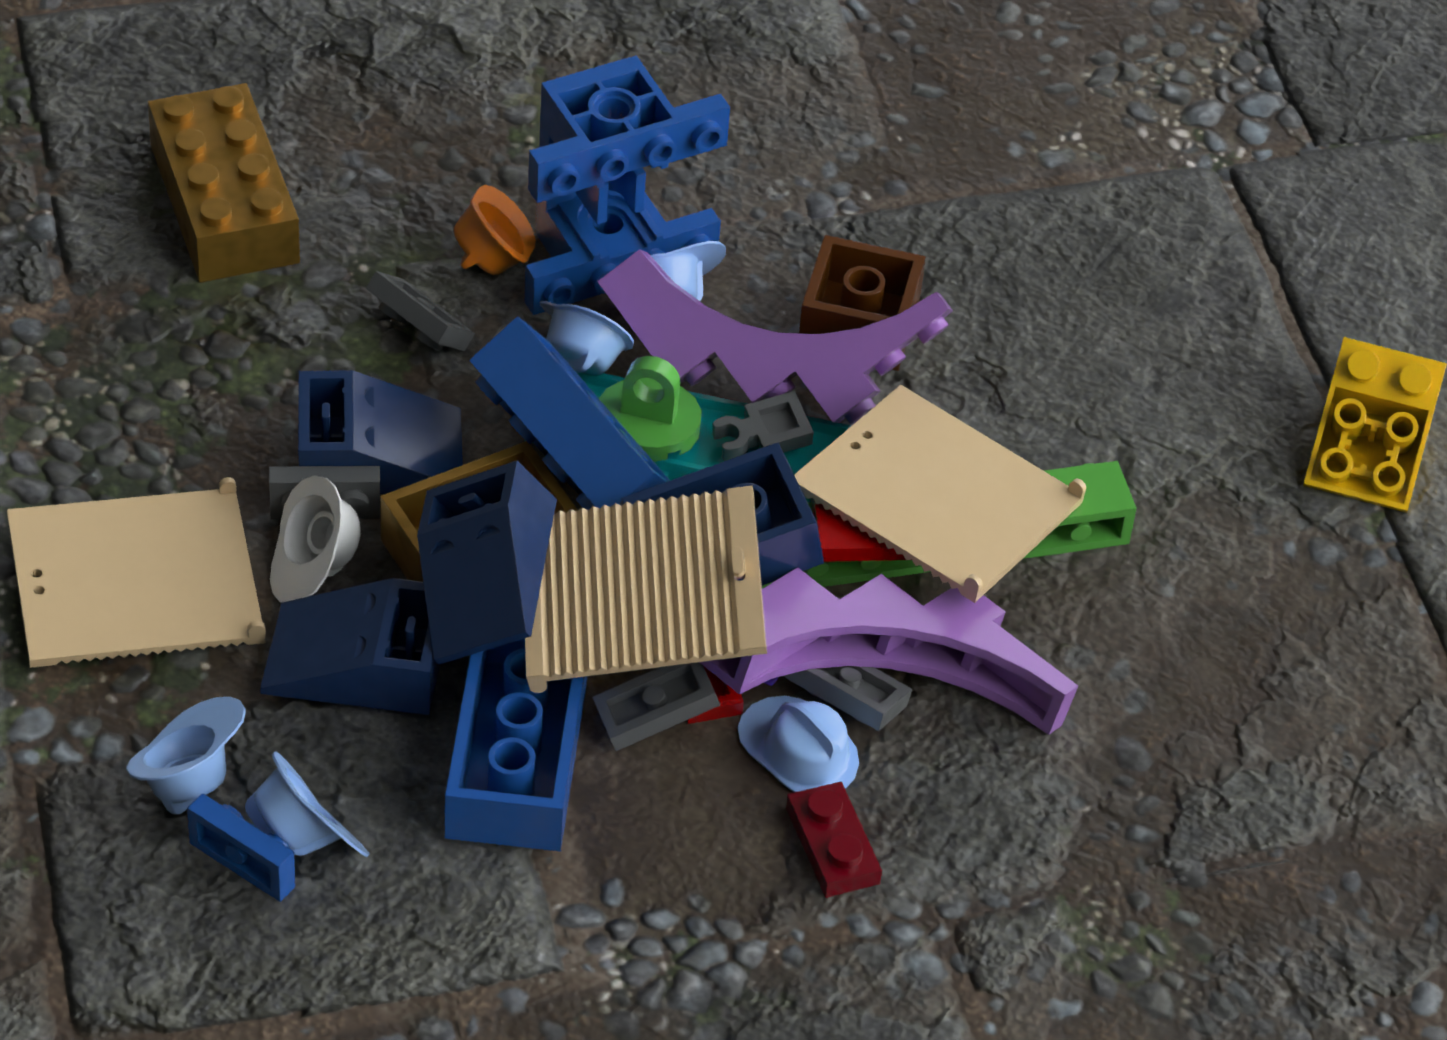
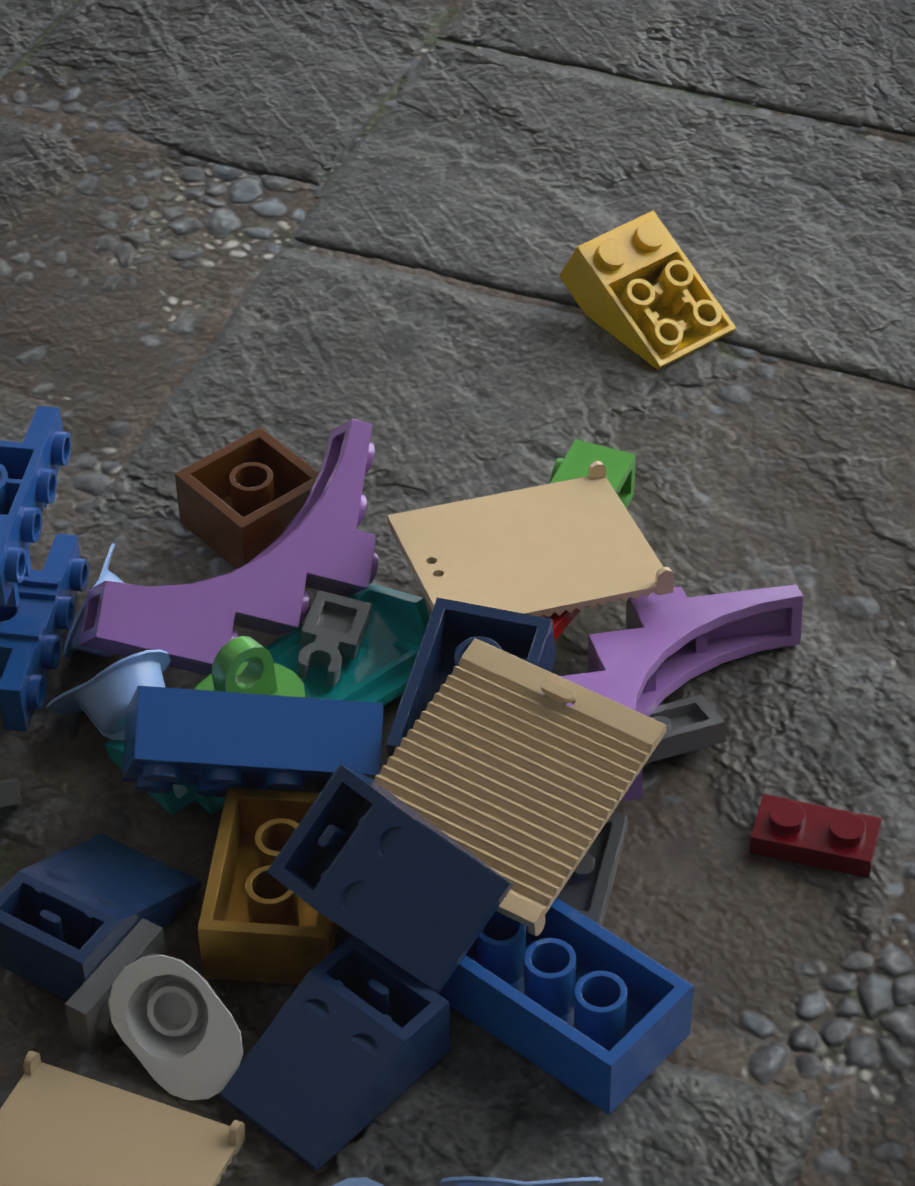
camera: 50 degrees left, 5 degrees down
(799, 742) = (693, 802): light blue piece -> none

